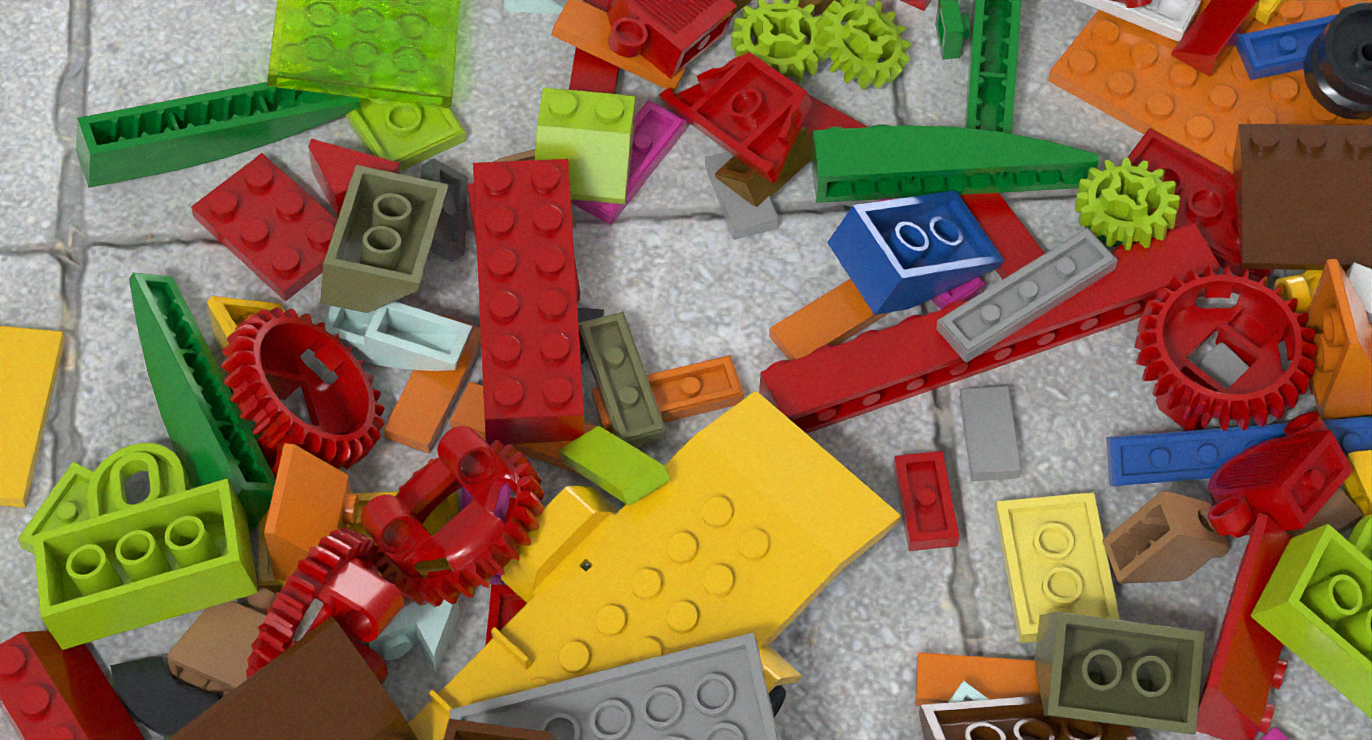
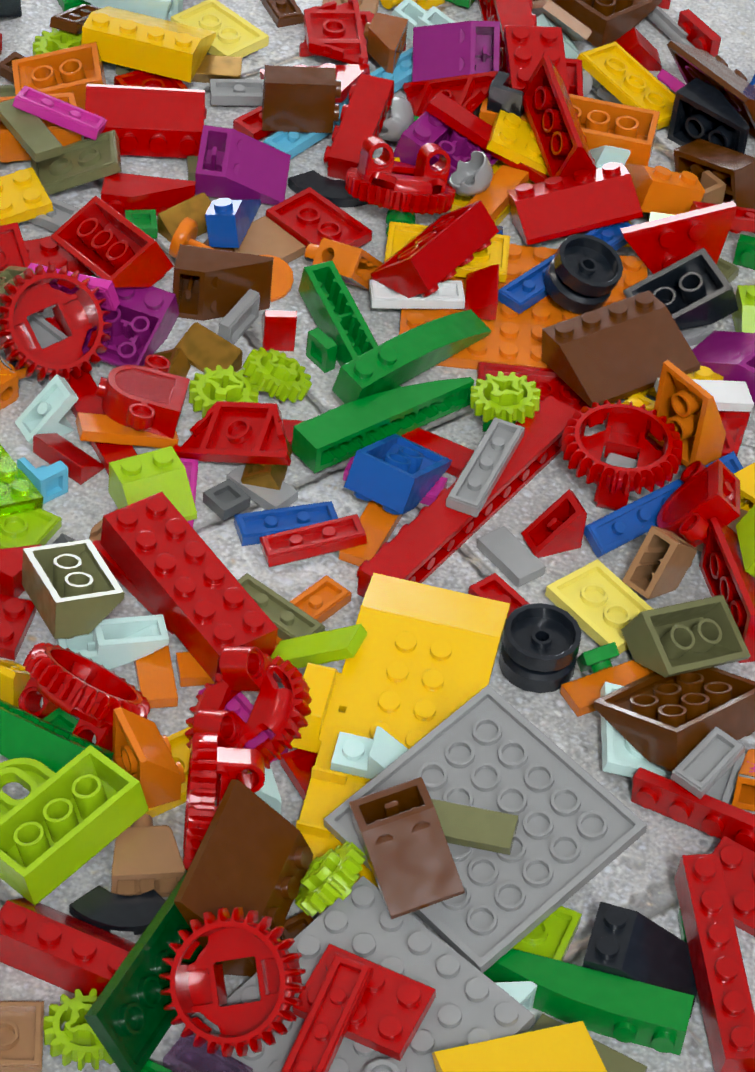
camera: 35 degrees left, 15 degrees down
(479, 71) = (49, 480): none -> medium azure panel
(533, 47) = (54, 448): none -> red slope
(563, 645) = (365, 755): none -> light aqua slope
(680, 192) = (226, 499): none -> dark grey plate
(737, 258) = (267, 522): none -> blue tile
(746, 299) = (313, 540): none -> red tile
(917, 589) = (539, 647): none -> black wheel
(989, 640) = (598, 658): none -> green plate
(1046, 86) = (408, 355): none -> green slope
(1071, 422) = (557, 528): none -> red slope

